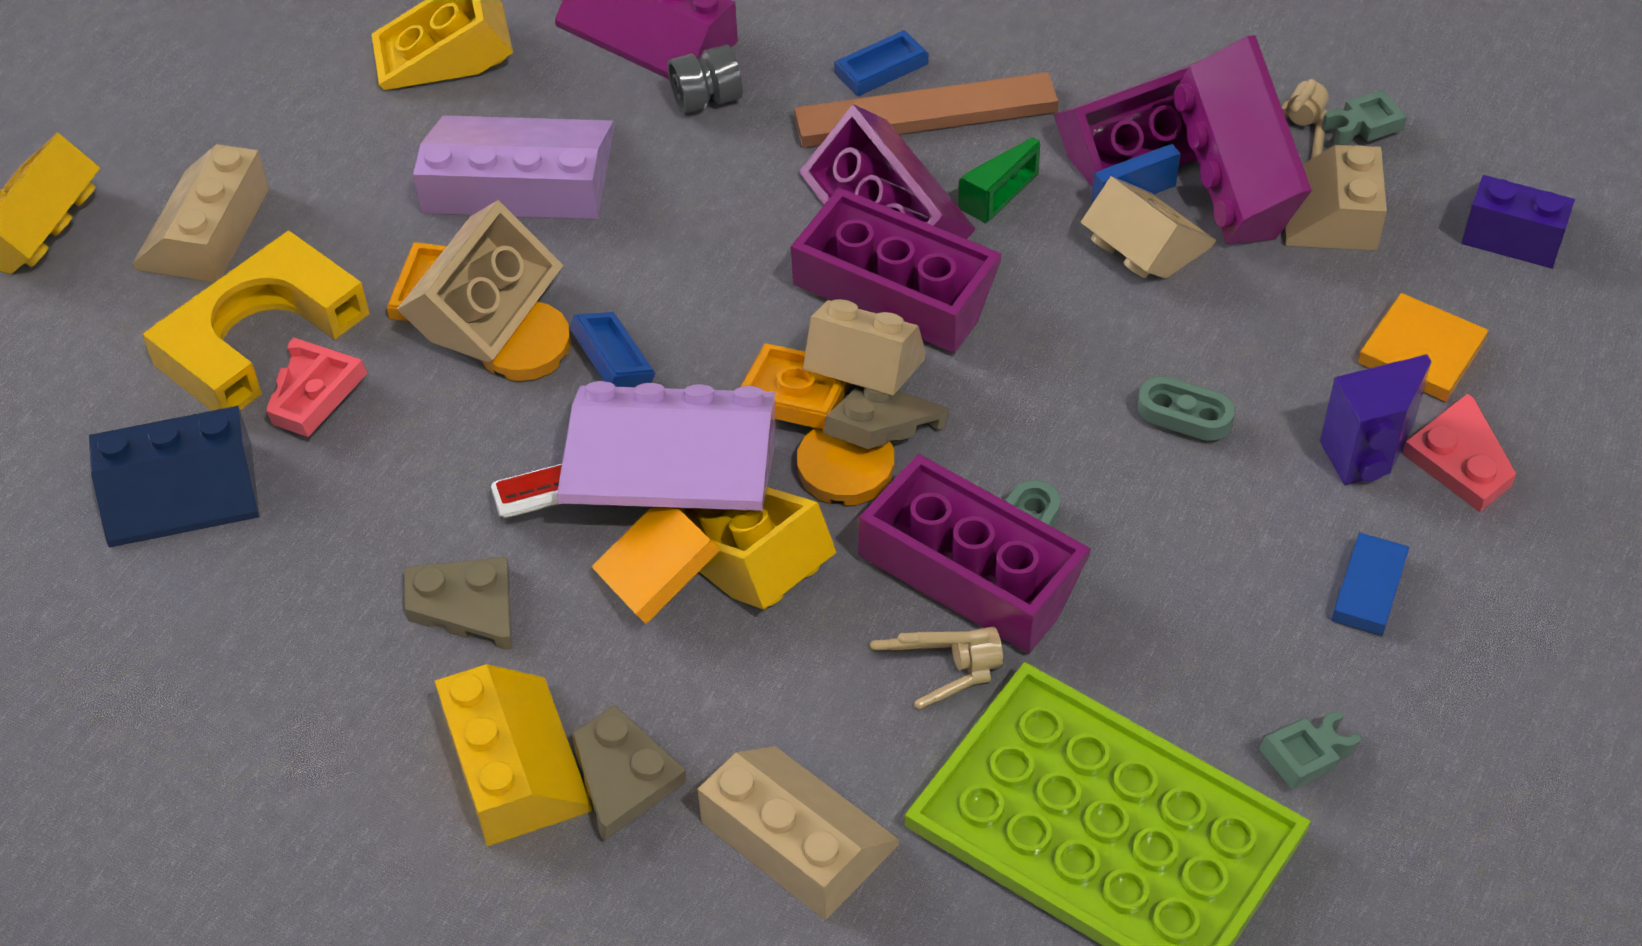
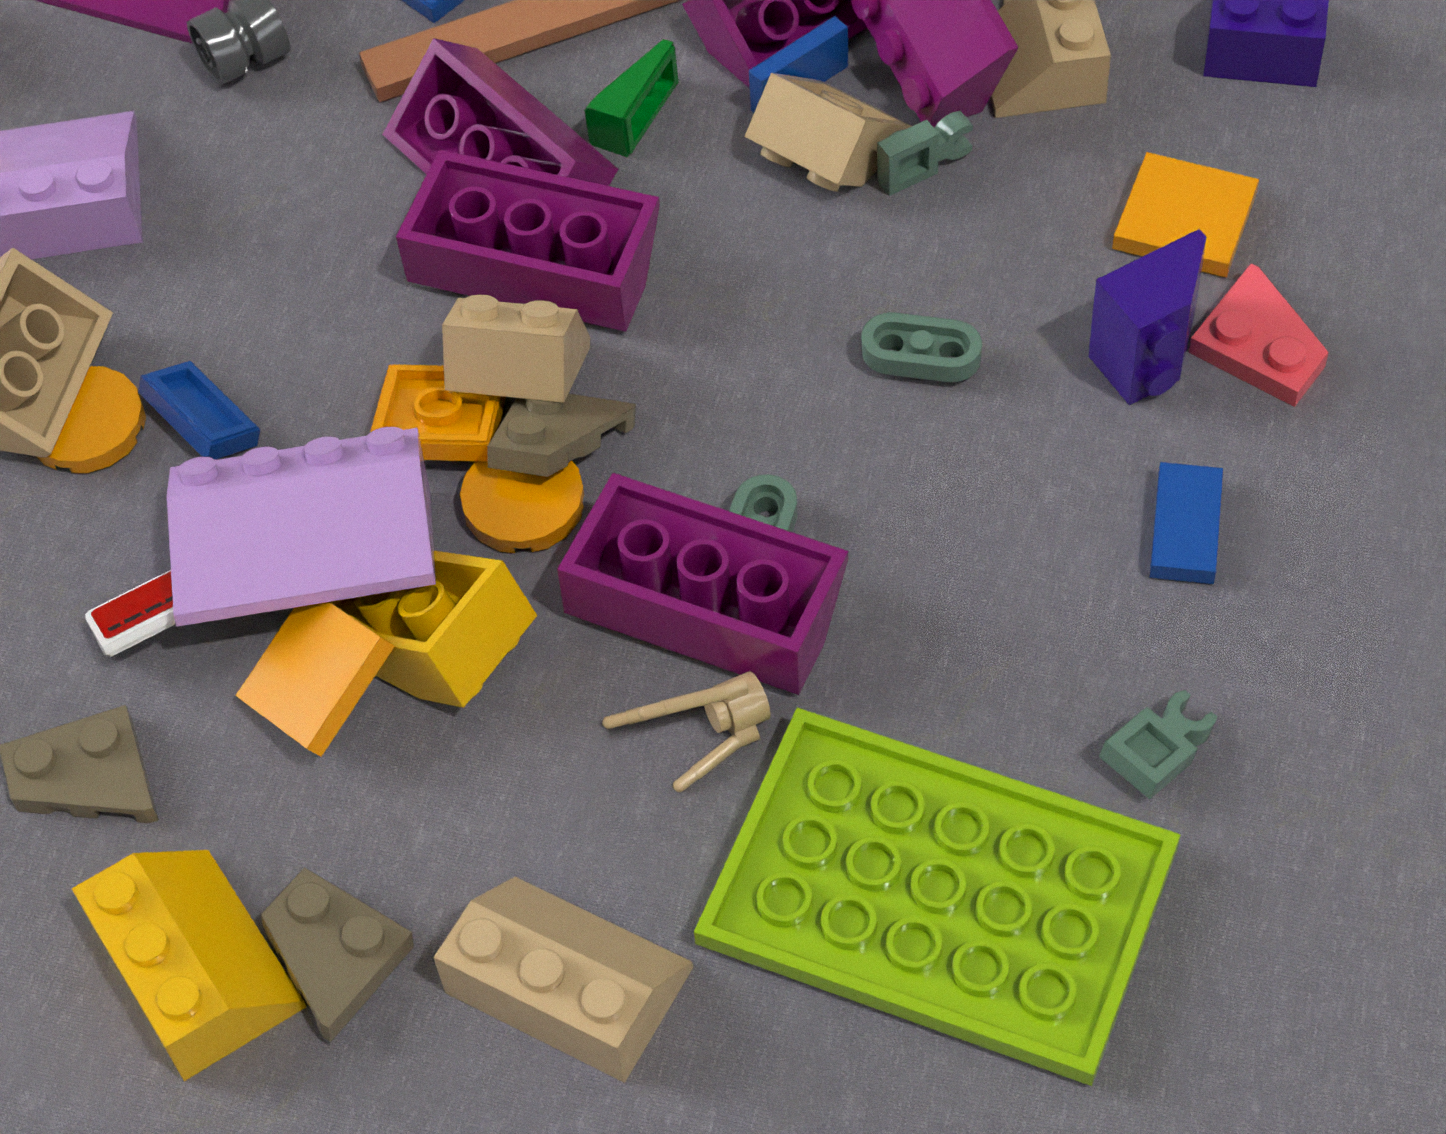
camera: 10 degrees left, 5 degrees up
(1214, 258) = (915, 152): none -> sand green plate

